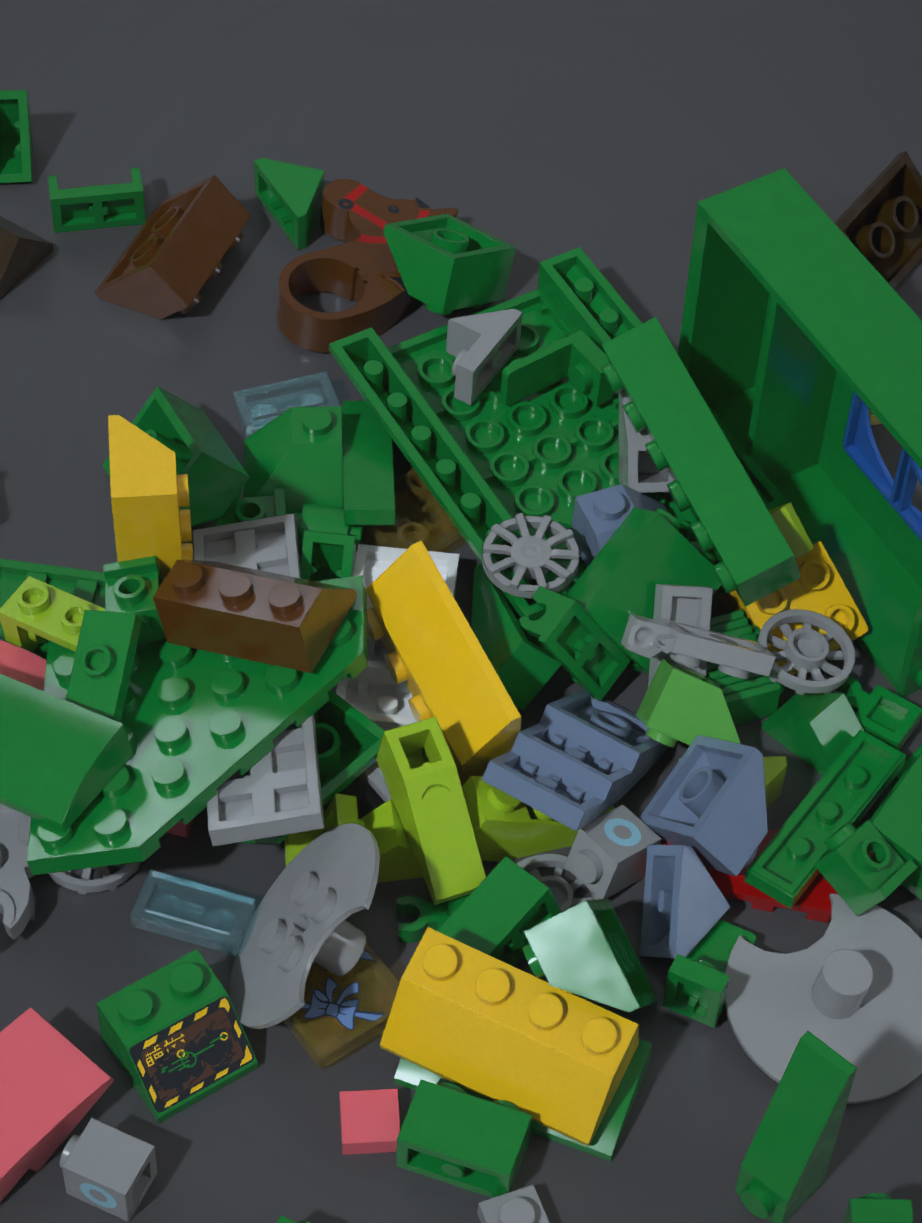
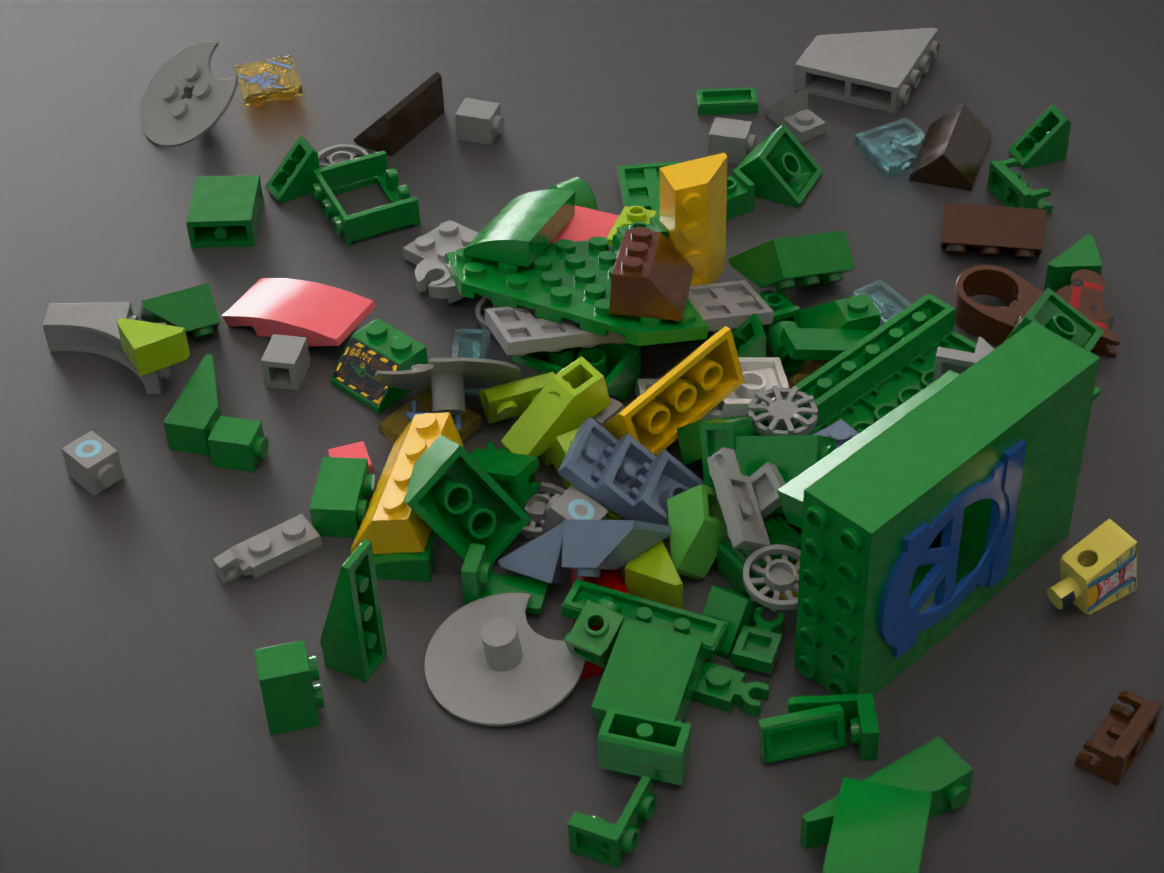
camera: 80 degrees right, 10 degrees down
(104, 662) = (581, 236): green plate -> none

